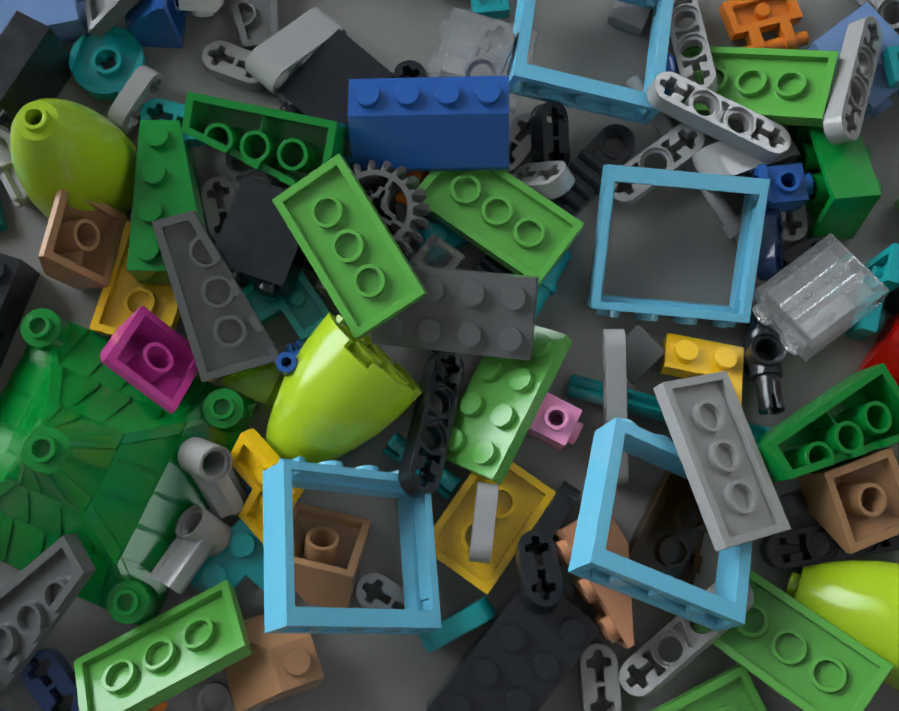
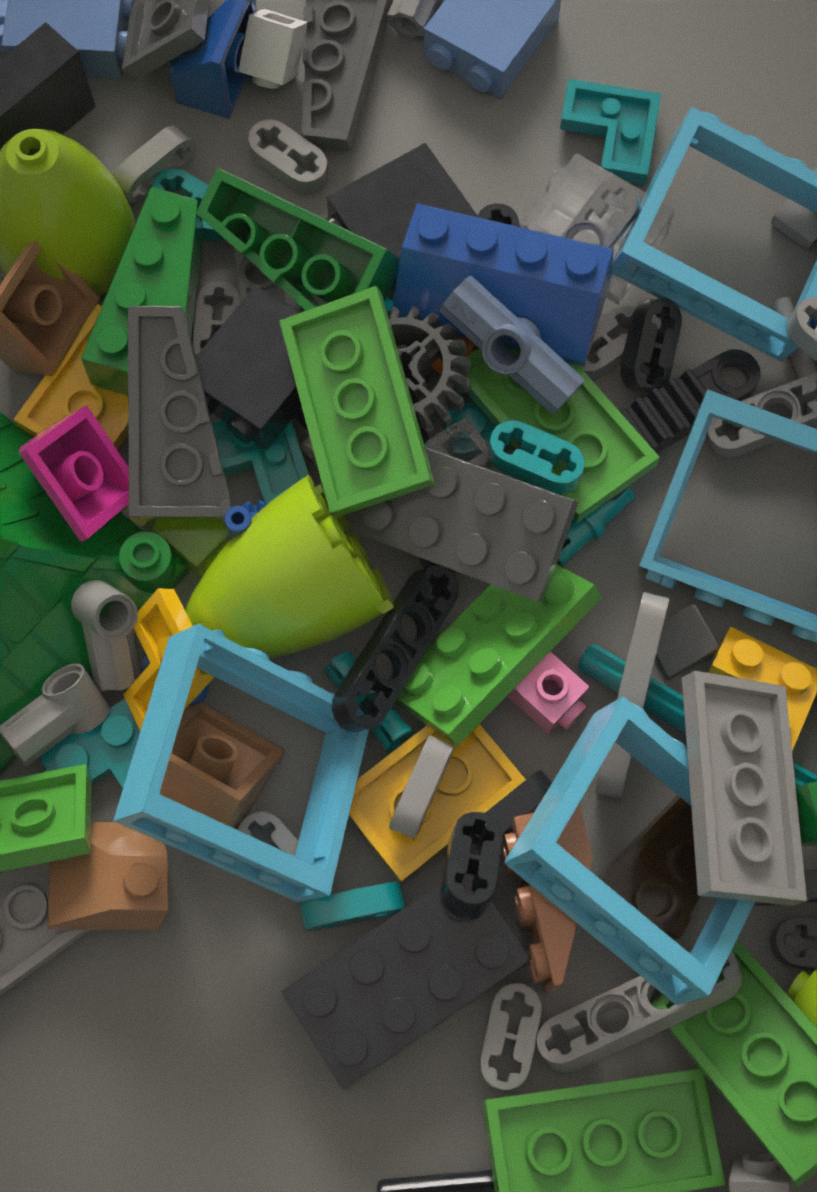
camera: 20 degrees right, 5 degrees down
(91, 51) = (116, 94): teal plate -> none
(290, 47) = (357, 150): light grey beam -> none
(429, 157) = (486, 323): none -> sand blue piece
(495, 249) = (536, 457): none -> teal beam
(547, 178) = (630, 390): light grey beam -> none

